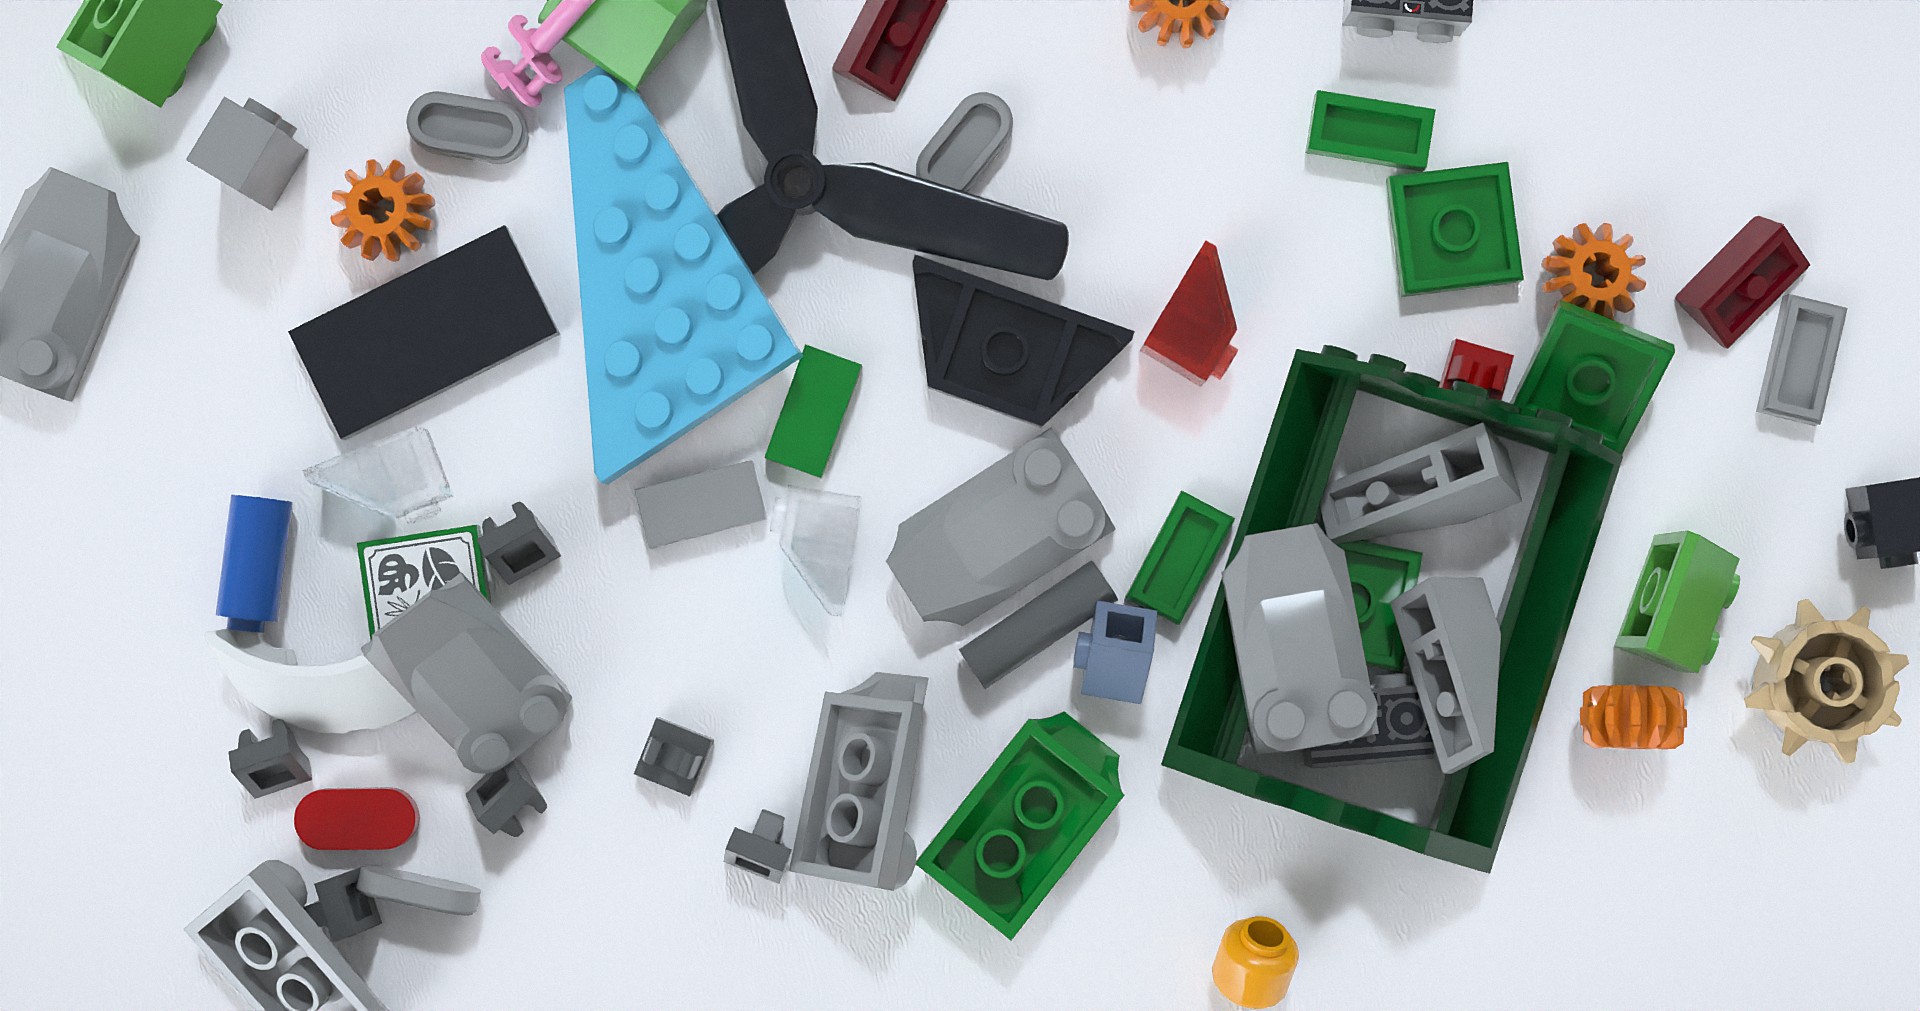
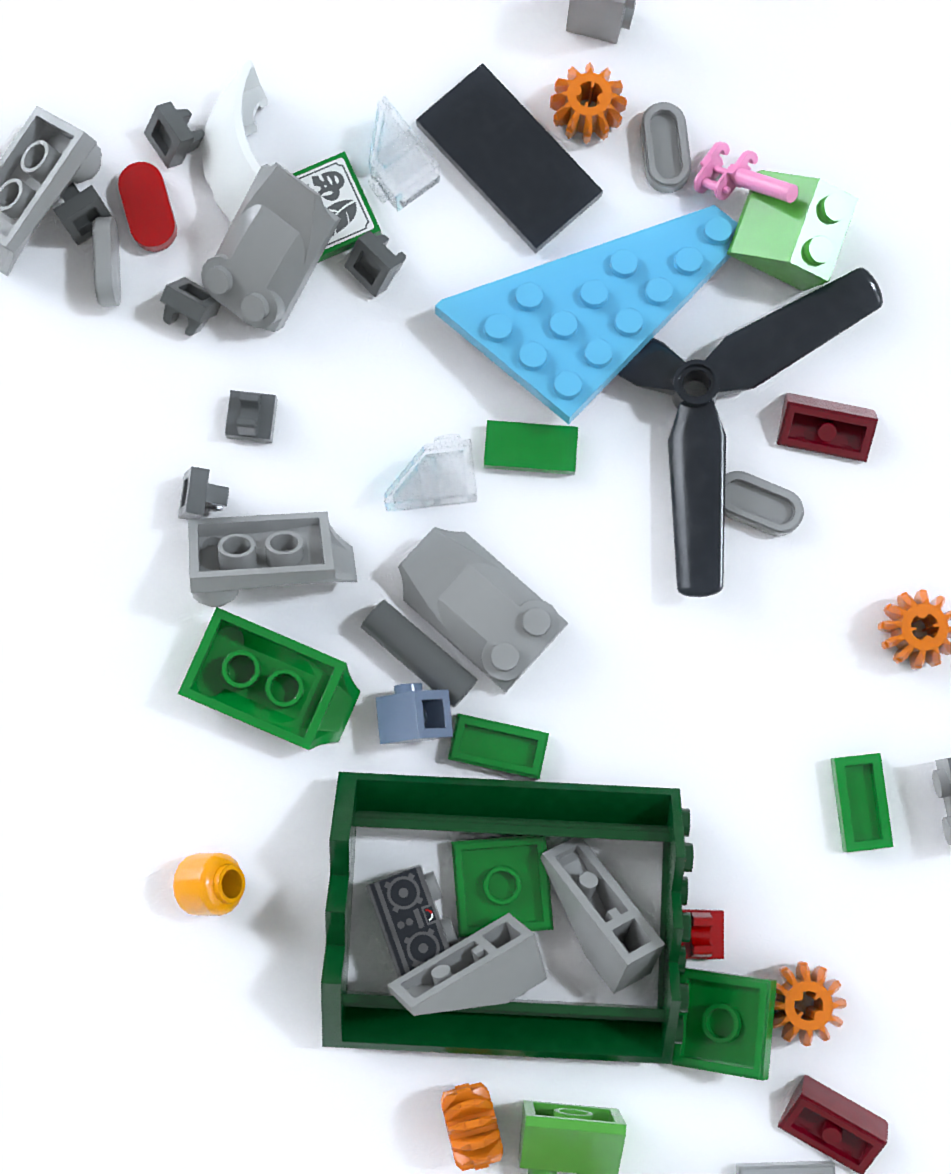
camera: 75 degrees right, 5 degrees down
(253, 562) = (311, 84): blue brick -> none
(700, 504) = (440, 385): light grey tile -> none
(1007, 345) = (619, 574): black wing -> none
(1196, 323) = (677, 707): clear red slope -> none
(1298, 641) = (458, 847): light grey slope -> none
(1454, 229) = (806, 888): green tile -> none

